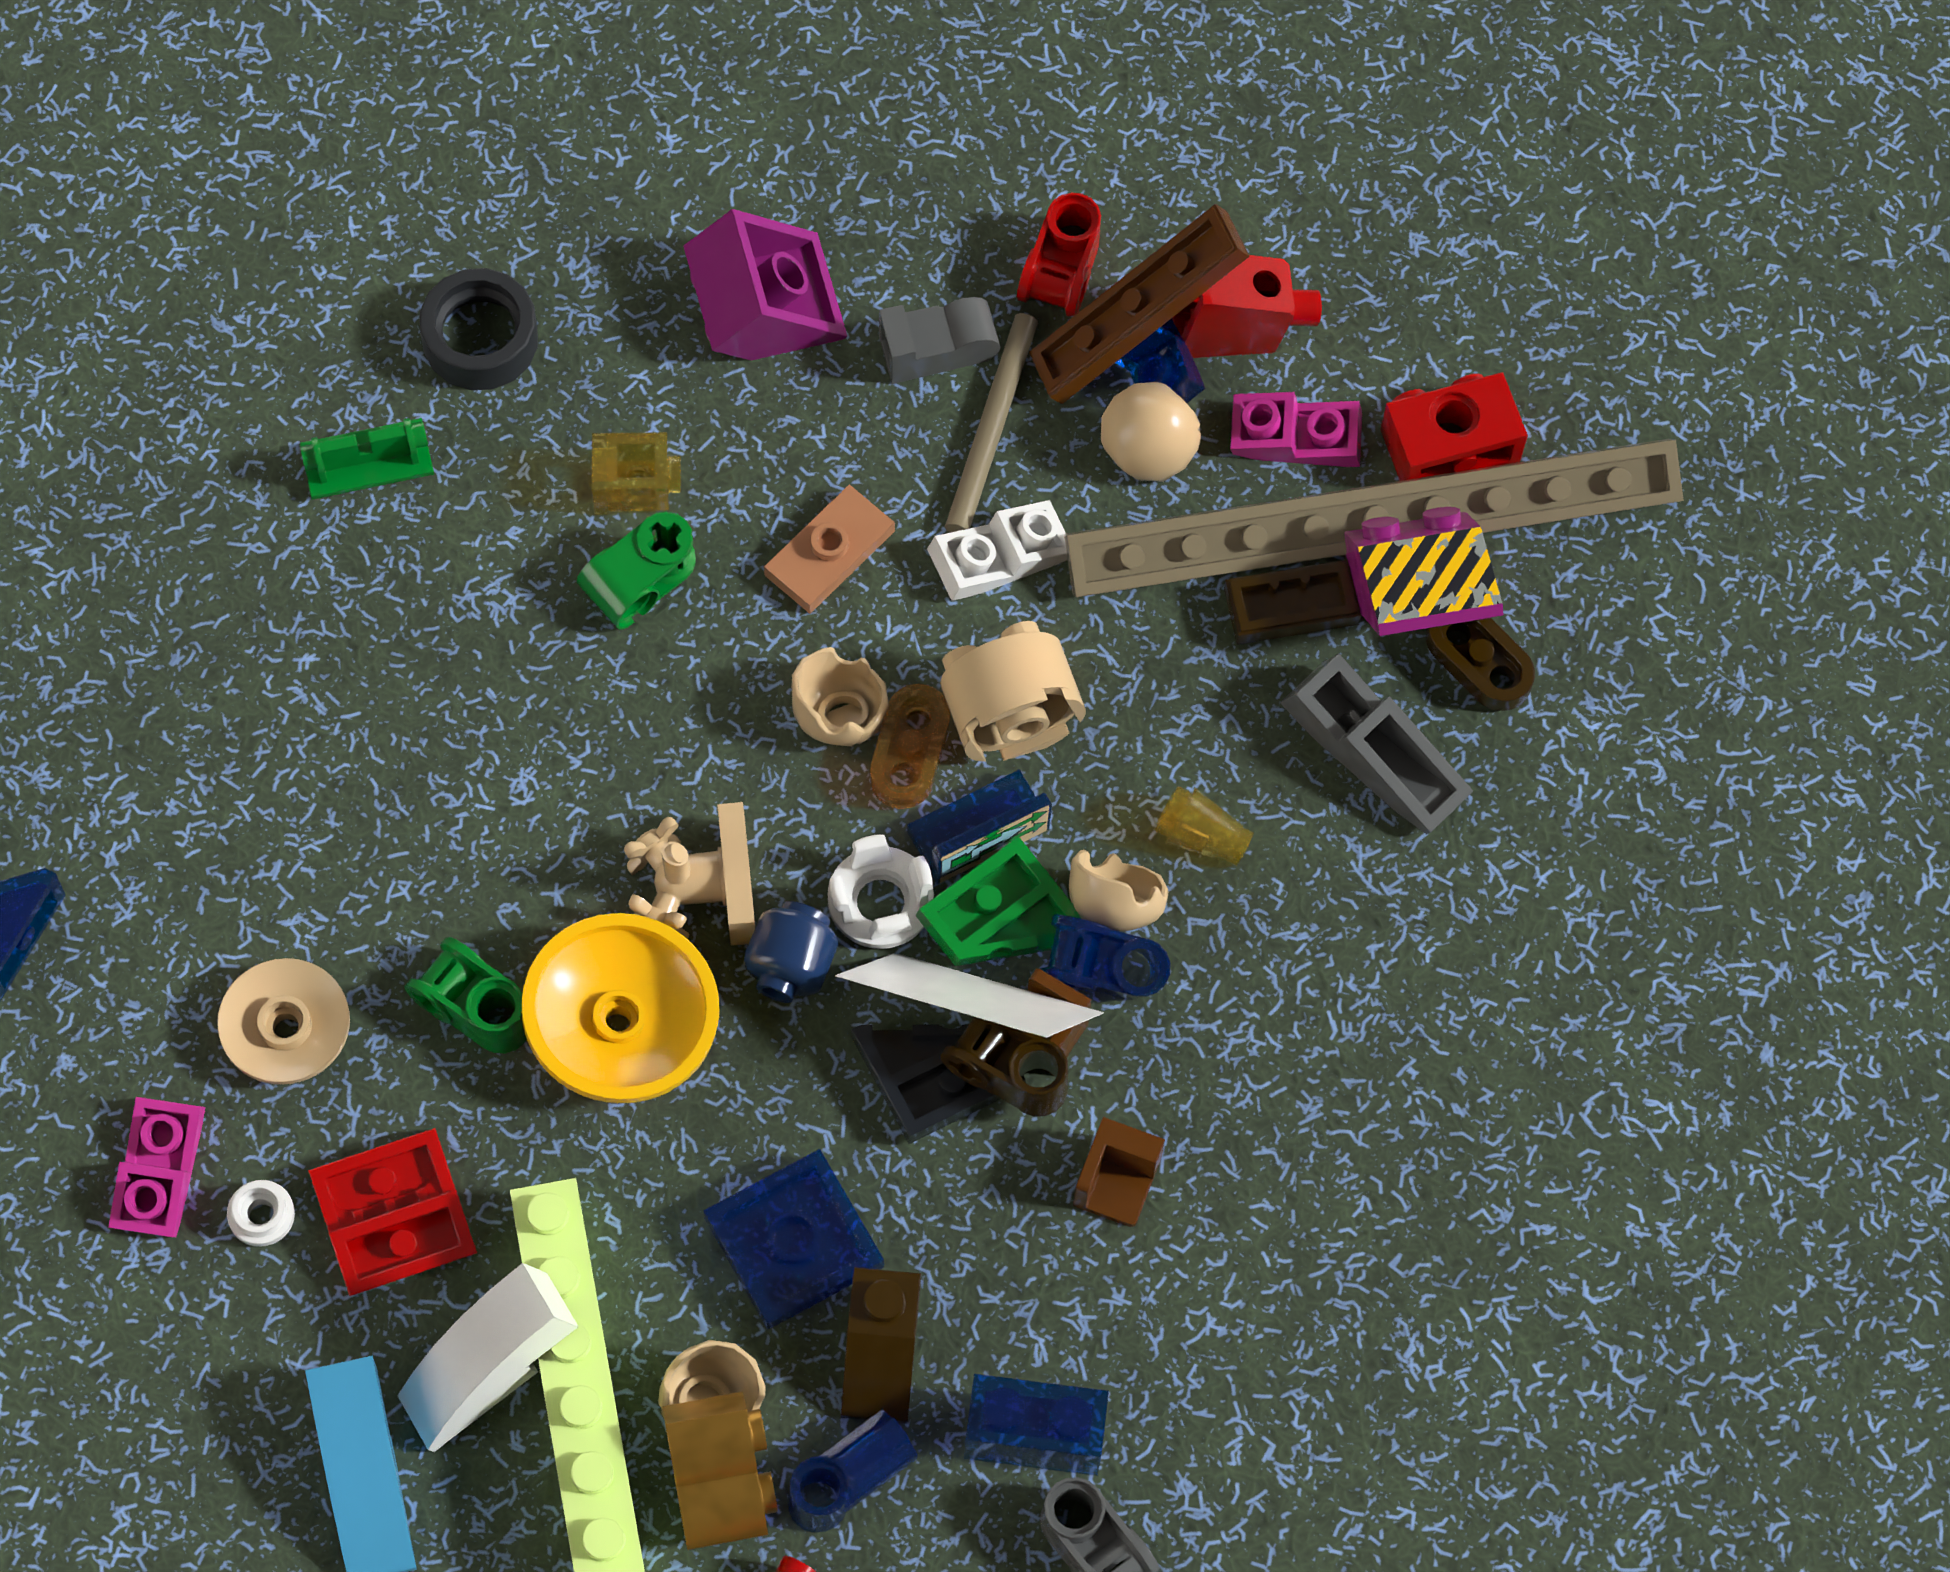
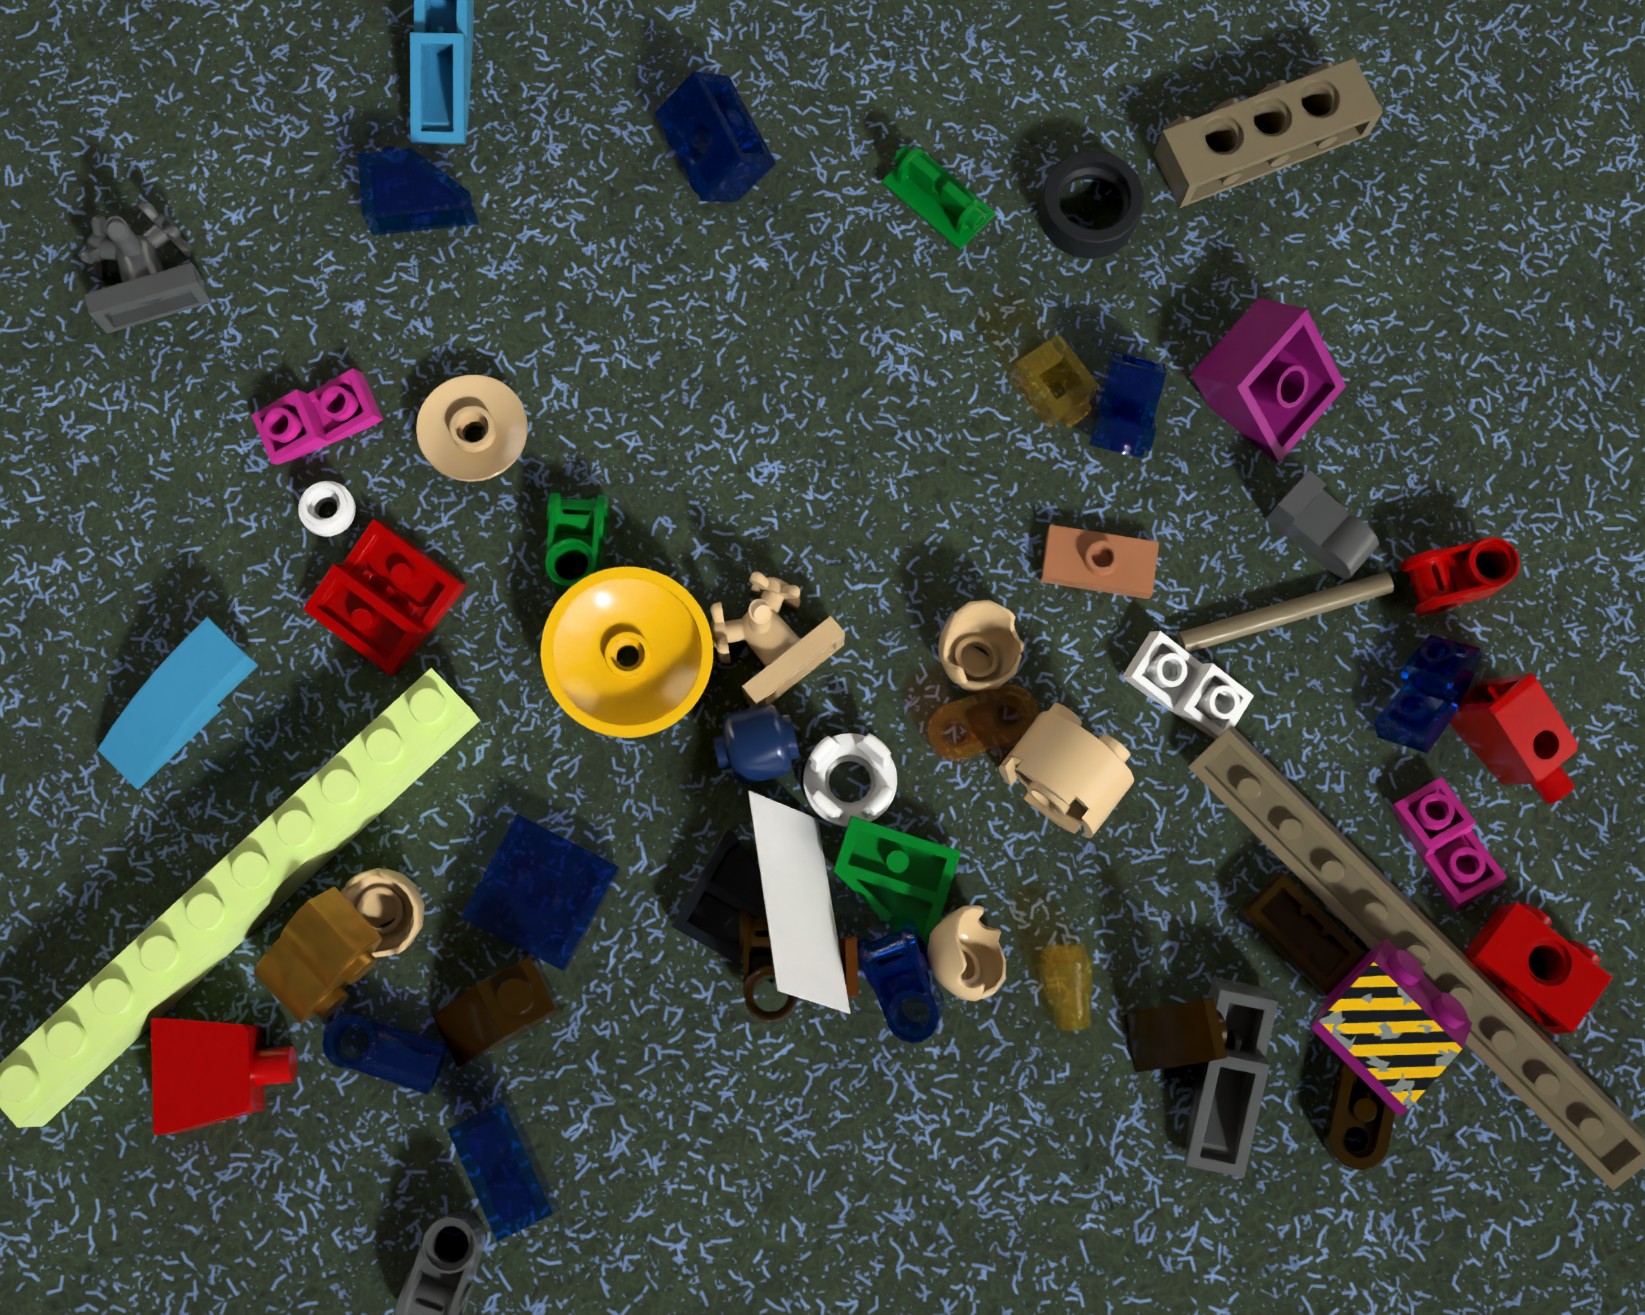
camera: 55 degrees right, 10 degrees up
(189, 598) = (714, 137): none -> clear blue brick
(485, 1355) = (302, 735): white slope -> none
(516, 217) = (1334, 91): none -> dark tan brick
(635, 576) = (979, 437): green piece -> none
(702, 423) = (1128, 404): none -> clear blue brick
(979, 825) = (955, 815): clear blue panel -> none
(1118, 1172) = (745, 1101): reddish brown panel -> none
(1139, 304) = (1459, 659): reddish brown tile -> none
(1150, 431) = (1362, 734): tan hair -> none
(1310, 758) = (1176, 1035): none -> dark brown slope

